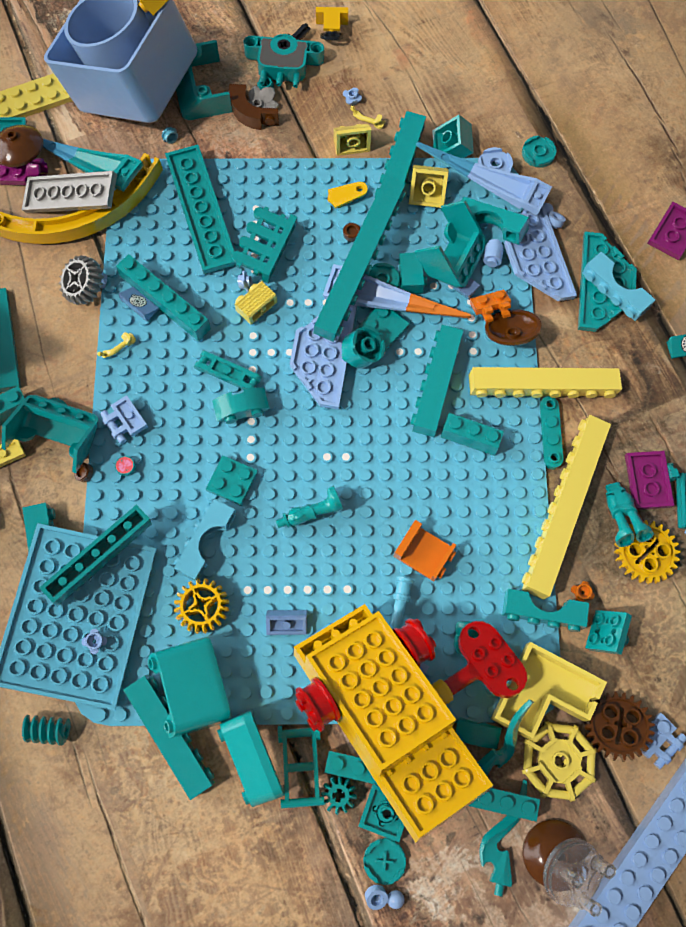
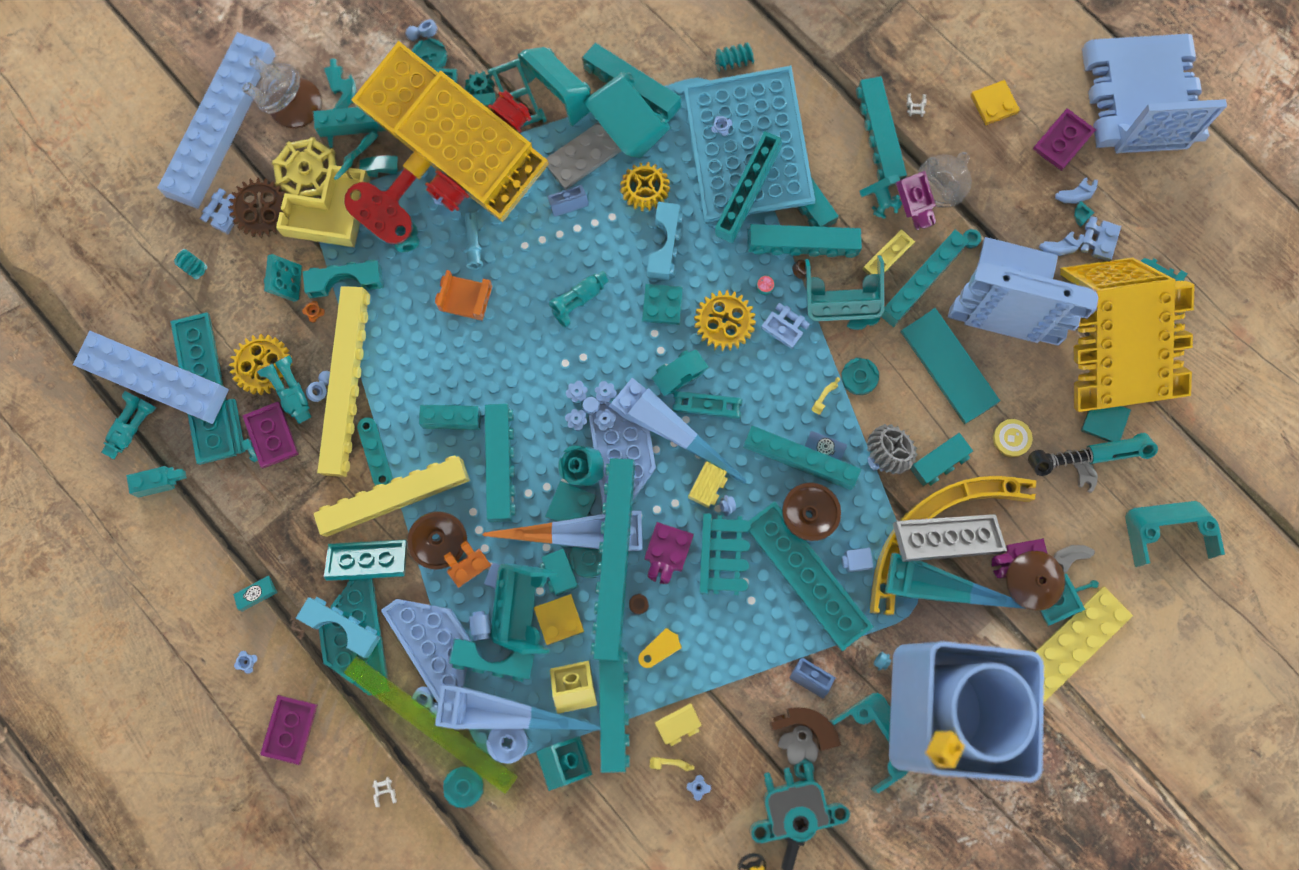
camera: 165 degrees right, 5 degrees up
(41, 263) = (941, 460): none -> teal brick
(67, 495) = (804, 240): none -> teal brick
(77, 358) = (860, 376): none -> teal tile
(153, 205) = (857, 560): none -> light blue brick
(171, 241) = (820, 503): none -> reddish brown dish
(190, 429) = (730, 305): none -> yellow gear
(230, 142) = (812, 678): none -> medium blue slope
(256, 667) = (582, 156): none -> light grey plate
(284, 381) = (650, 412): none -> light blue plate
(312, 261) = (667, 551): none -> magenta plate
(335, 401) = (591, 405): none -> light blue plant
(422, 236) = (558, 619): none -> yellow plate
(560, 199) = (425, 721): none -> clear neon green plate
(581, 337) = (365, 560): none -> plate
(584, 518) = (319, 387): none -> light blue plate
(598, 165) = (388, 782): none -> white piece

